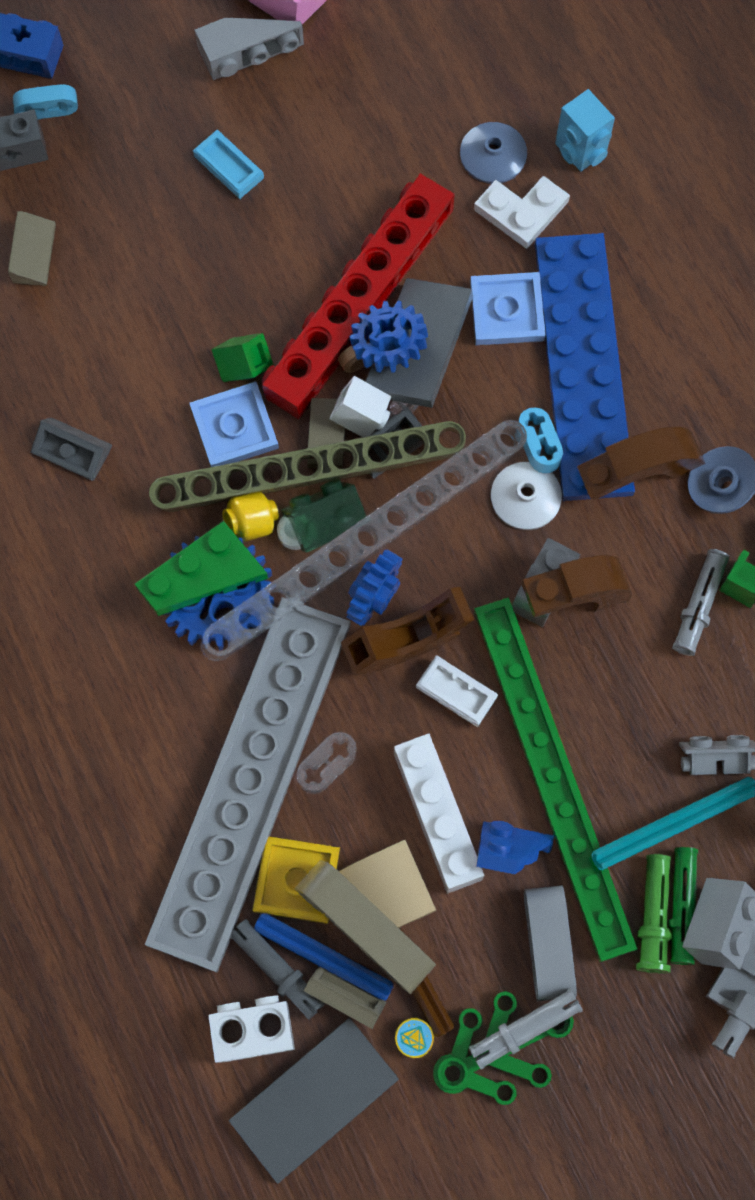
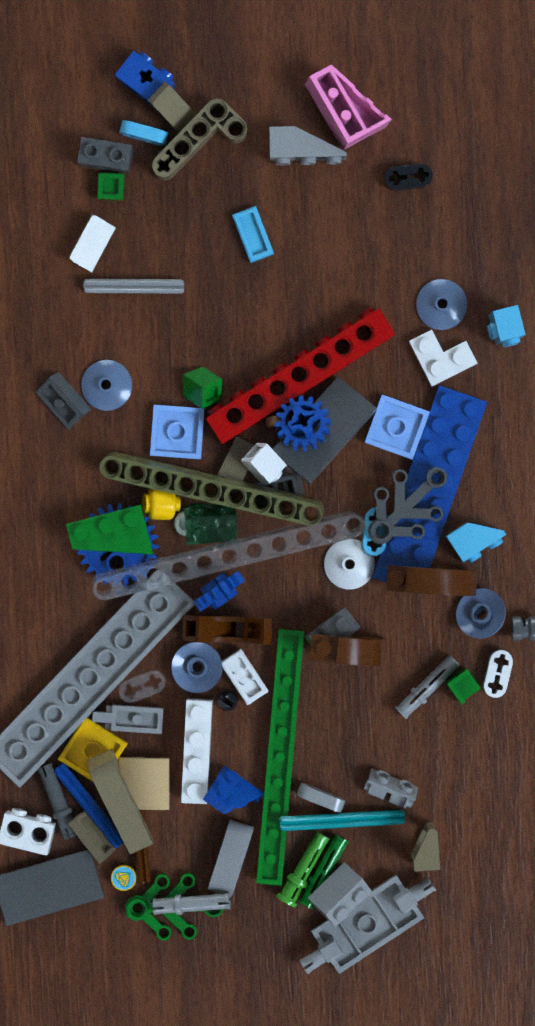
camera: 25 degrees right, 15 degrees up
(29, 176) = (111, 186): none -> green plate
(68, 56) = (172, 107): none -> dark tan tile
(92, 120) = (196, 143): none -> dark tan beam
(105, 277) = (157, 286): none -> light grey axle
(123, 422) = (114, 396): none -> sand blue dish
(329, 811) = (131, 718): none -> light grey hinge
(384, 28) = (408, 170): none -> black beam
(385, 685) = (193, 680): none -> sand blue dish
(445, 740) = (229, 695): none -> black hinge
(565, 390) = (404, 508): none -> dark grey plant
(632, 805) = (321, 797): none -> light grey beam
(666, 394) = (472, 538): none -> medium azure slope

